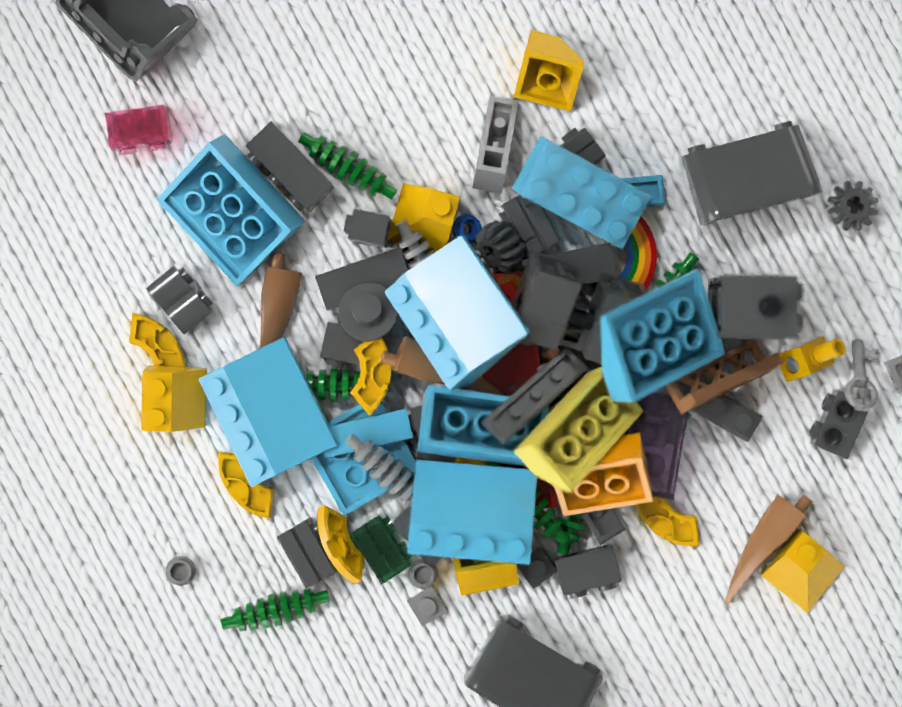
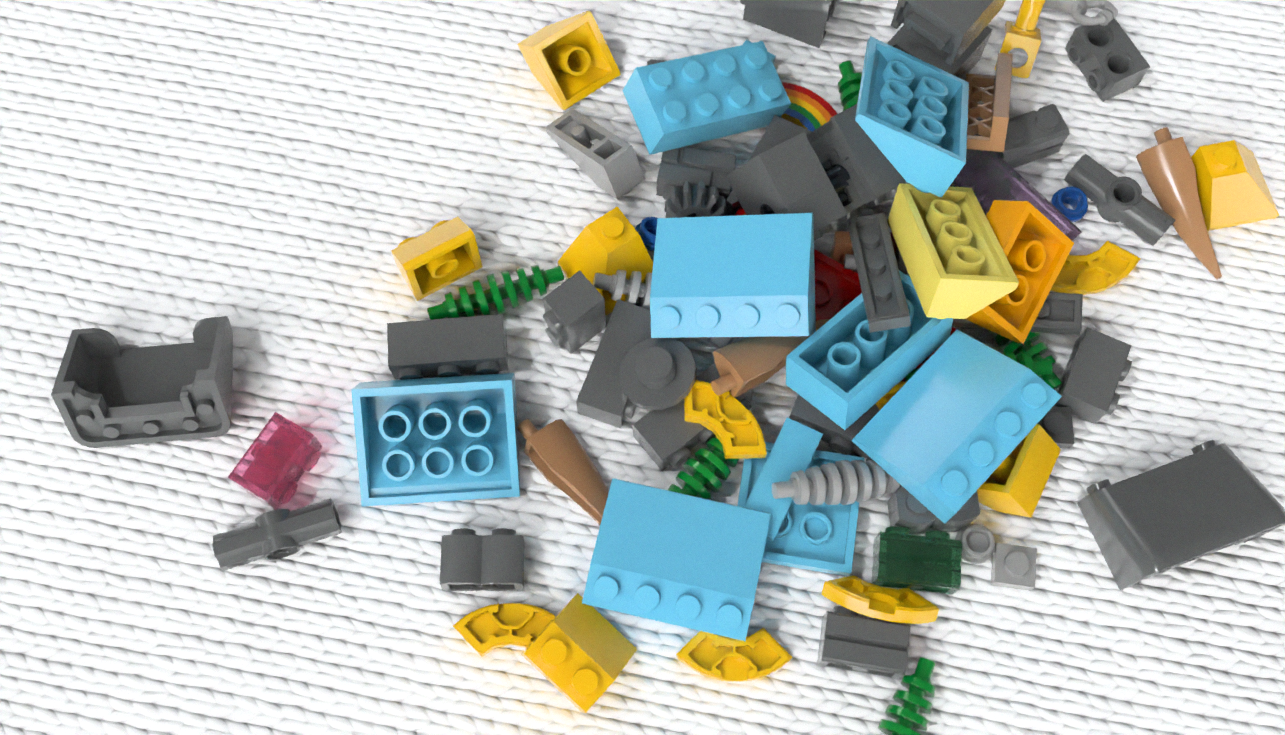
camera: 55 degrees left, 20 degrees down
(99, 167) = (276, 534): none -> dark grey piece
(340, 108) = (437, 257): none -> yellow slope
(711, 481) = (1073, 197): none -> blue plate
(730, 525) = (1135, 210): none -> dark grey piece

